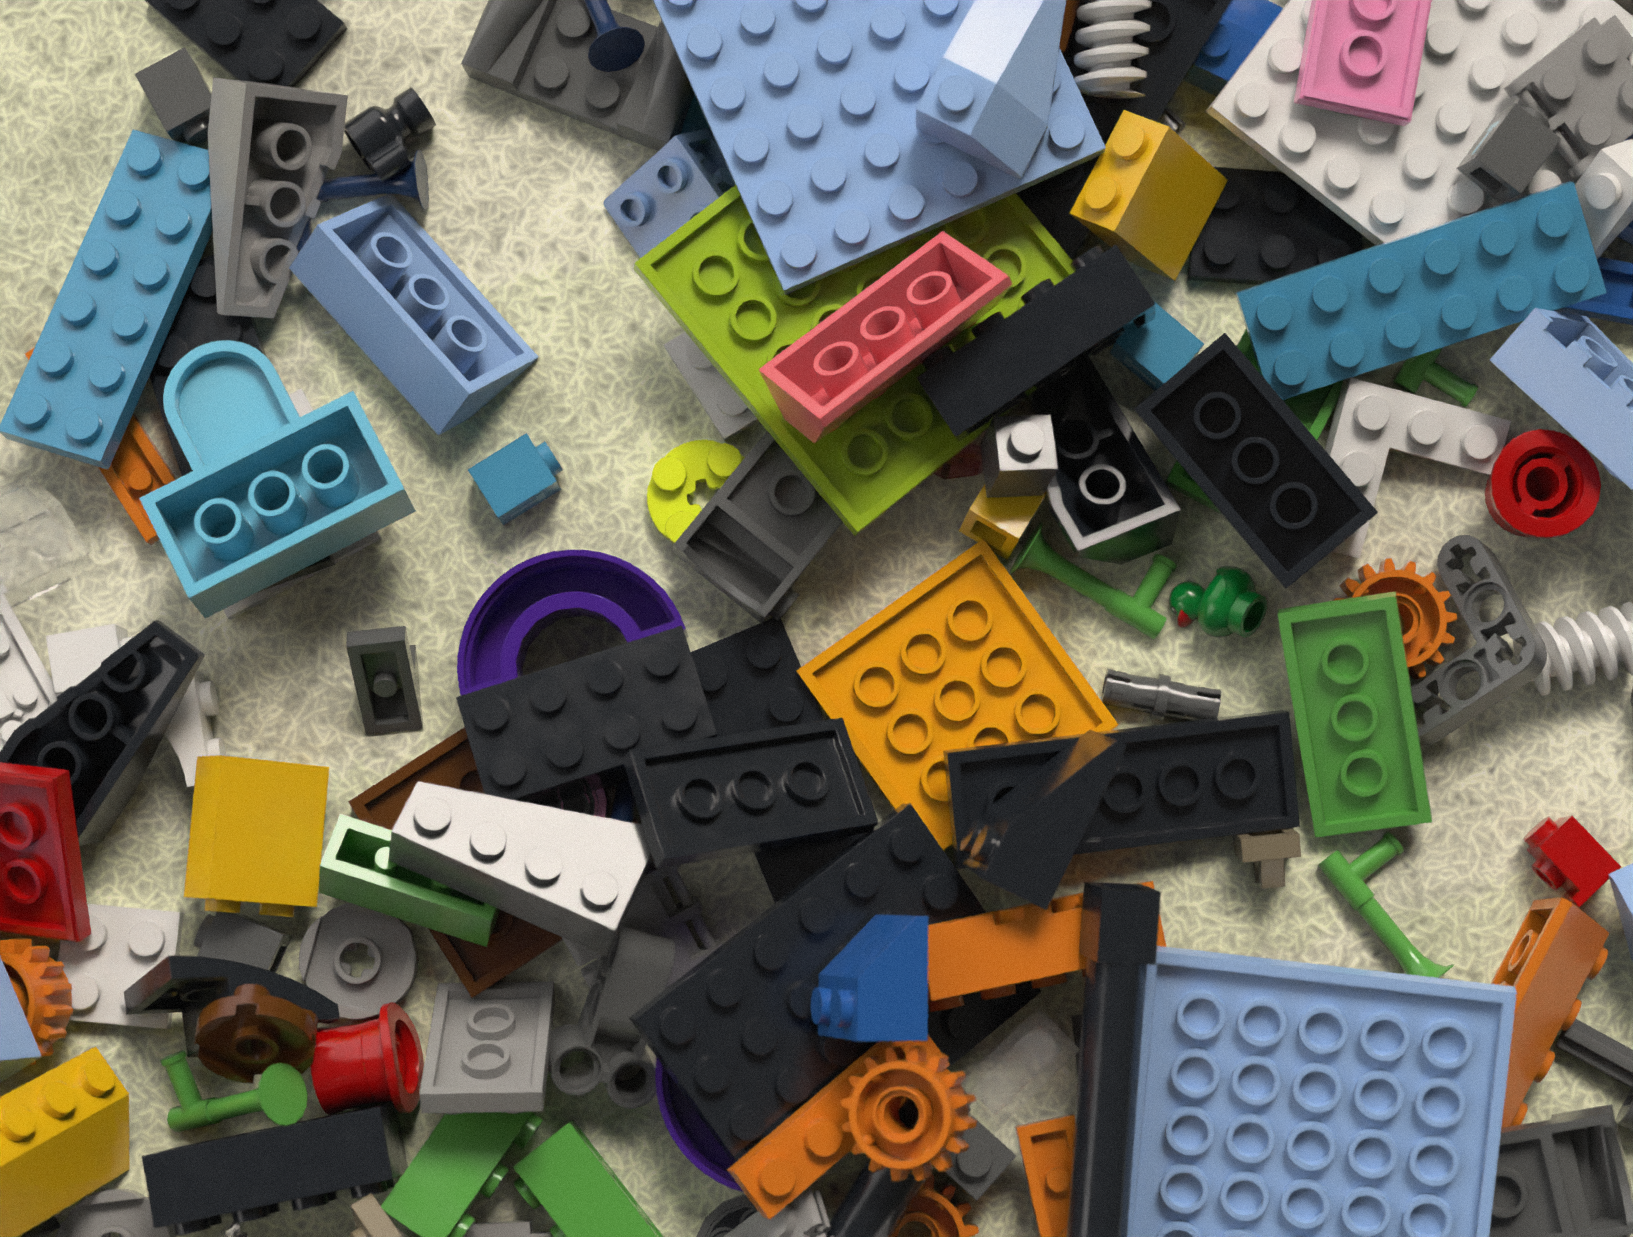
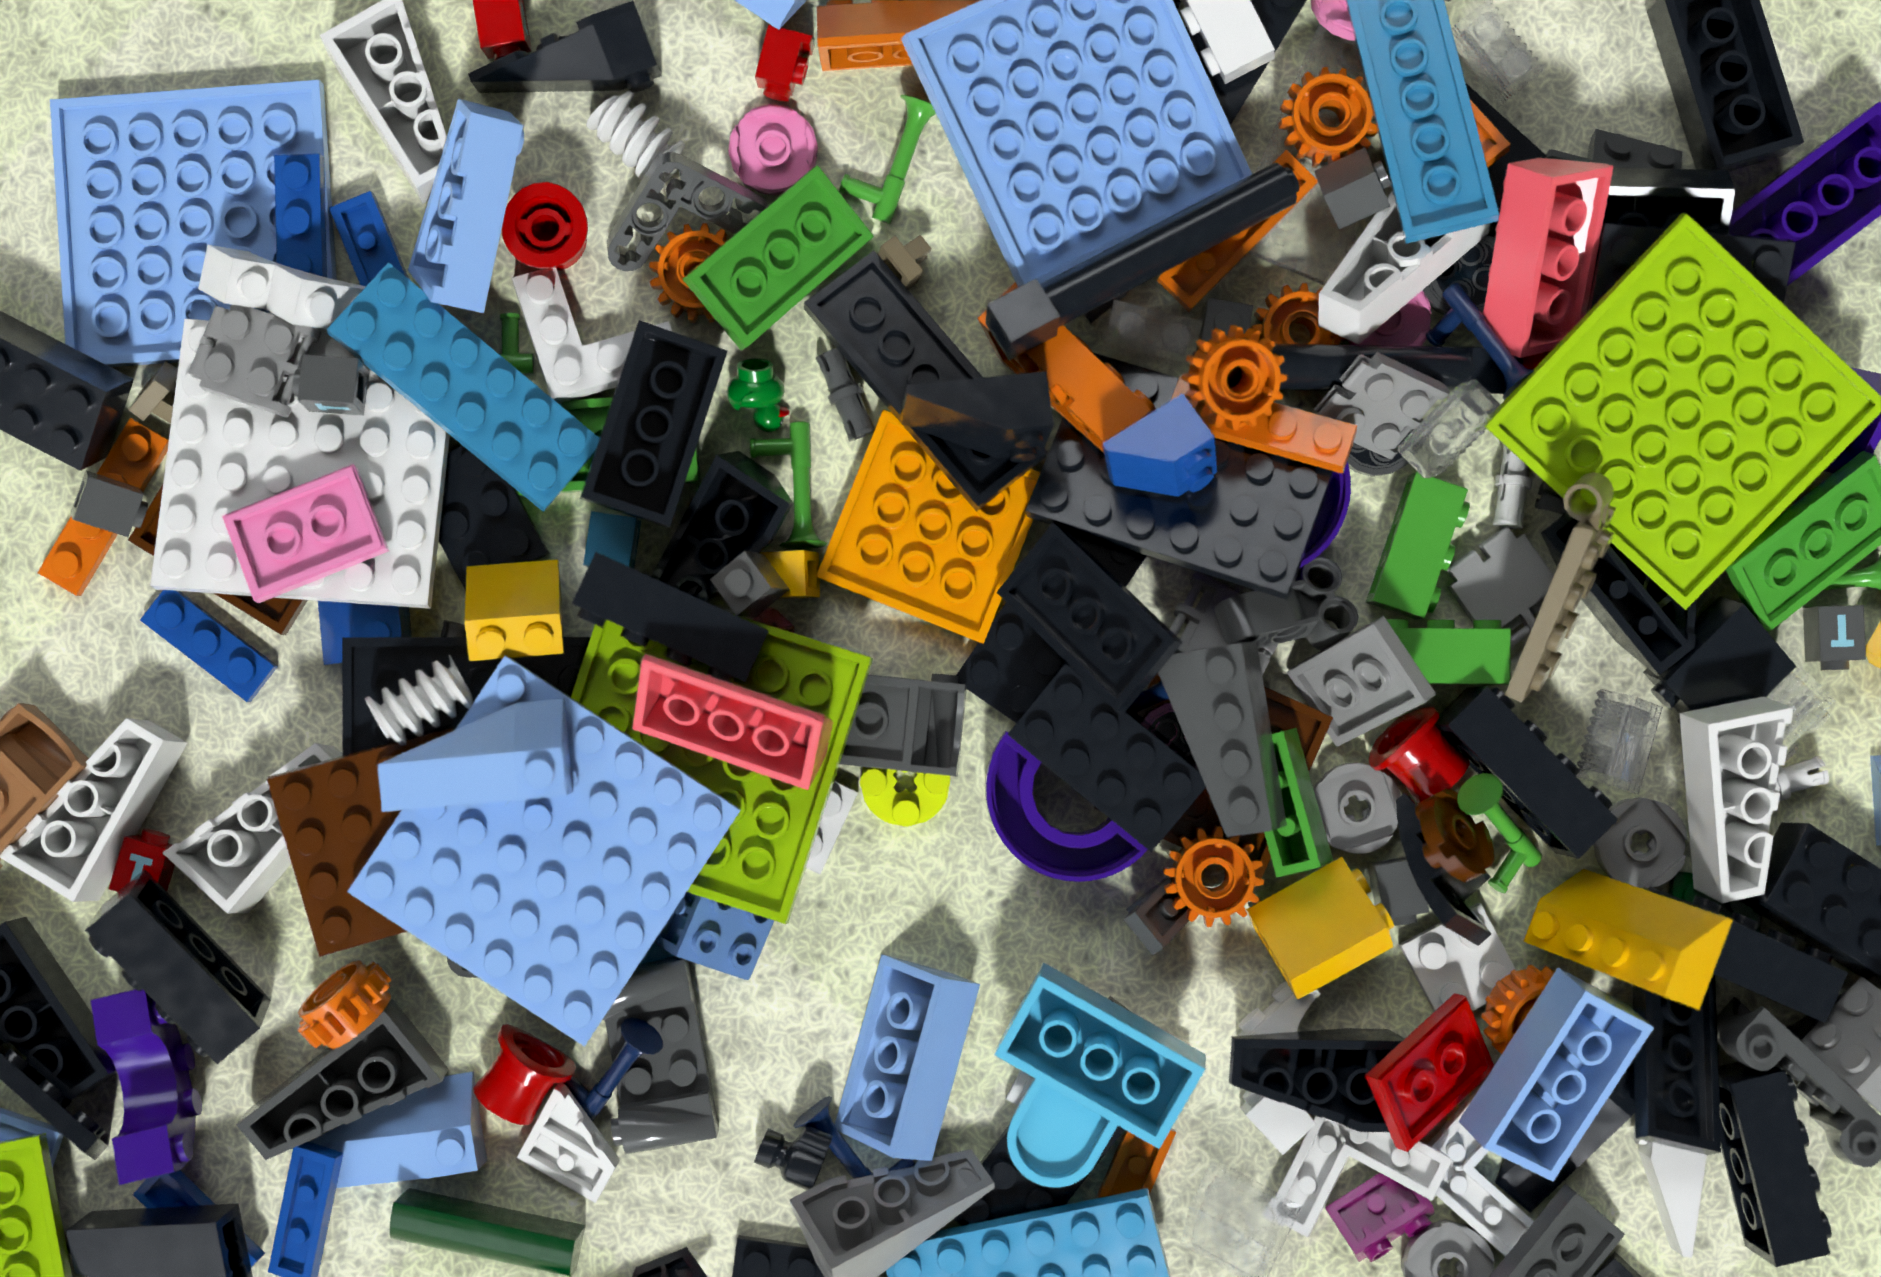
camera: 125 degrees left, 5 degrees up
(361, 733) = (1230, 894): none -> orange gear
(517, 477) = (973, 913): dark azure brick -> none
(1464, 800) = (773, 165): none -> bright pink tile

